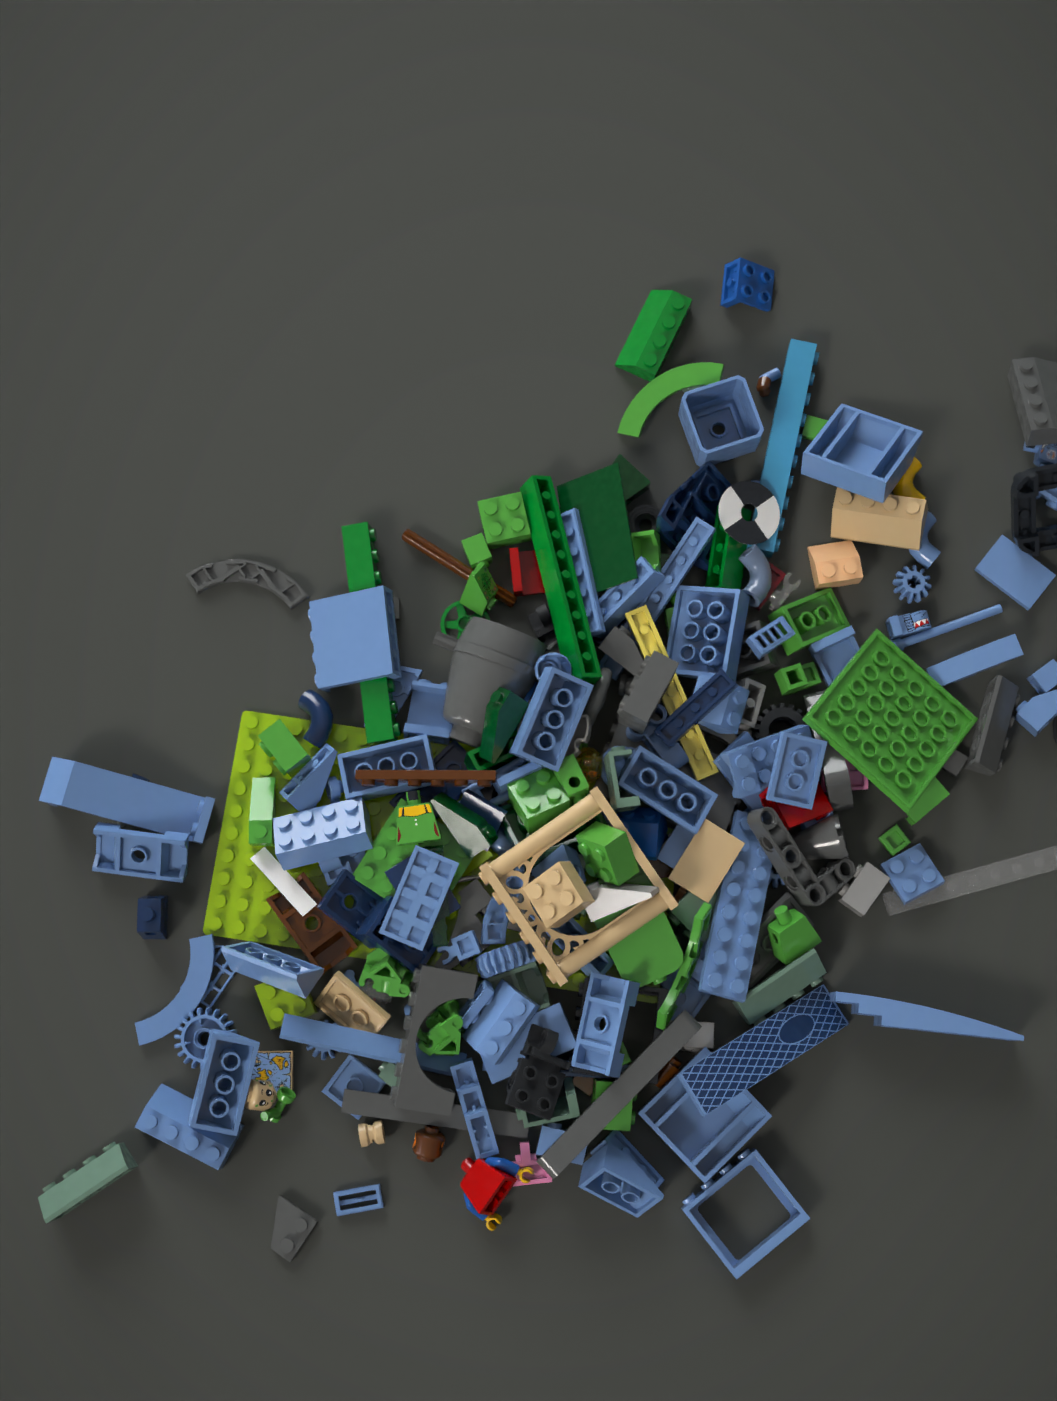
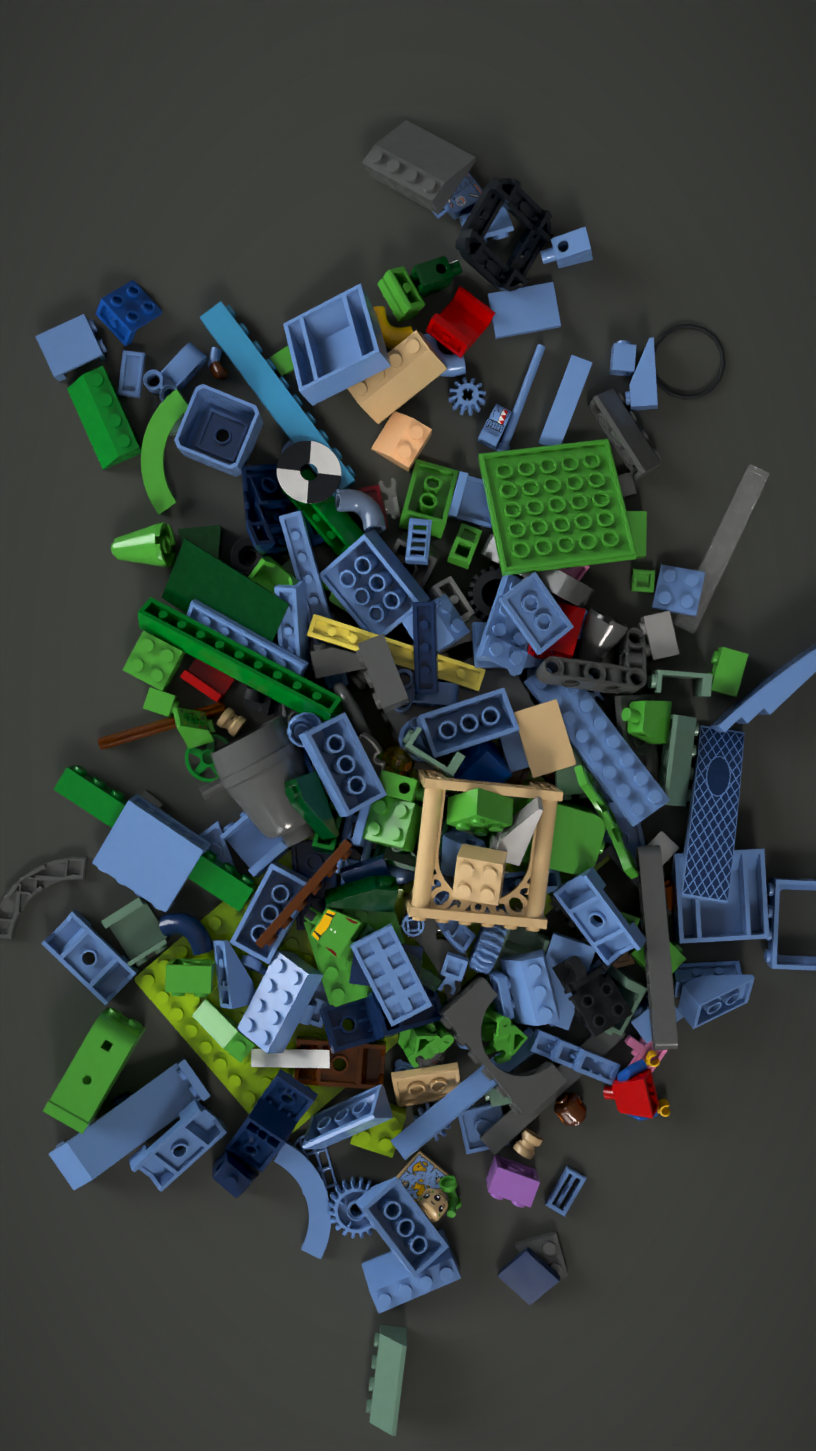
camera: 50 degrees left, 10 degrees up
(151, 735) = (94, 1069): none -> bright green piece
(221, 907) = (271, 1120): none -> dark blue bracket
(233, 685) = (109, 970): none -> medium blue piece
(264, 1228) = (528, 1276): none -> dark blue tile
(284, 680) = (137, 931): none -> sand green panel
(331, 1145) = (512, 1181): none -> medium lavender slope
(472, 884) = (409, 925): none -> medium blue wheel
(507, 615) = (231, 721): none -> tan wheel
(586, 442) = (147, 546): none -> bright green cone
(686, 266) = (71, 345): none -> medium blue panel
(704, 327) = (131, 374): none -> medium blue tile
(736, 357) = (177, 372): none -> medium blue piece
(861, 948) = (702, 681): none -> sand green panel
(883, 967) = (727, 671): none -> bright green brick
(942, 470) = (401, 294): none -> bright green brick
(962, 531) = (460, 322): none -> red panel
(976, 481) = (434, 275): none -> dark green torso

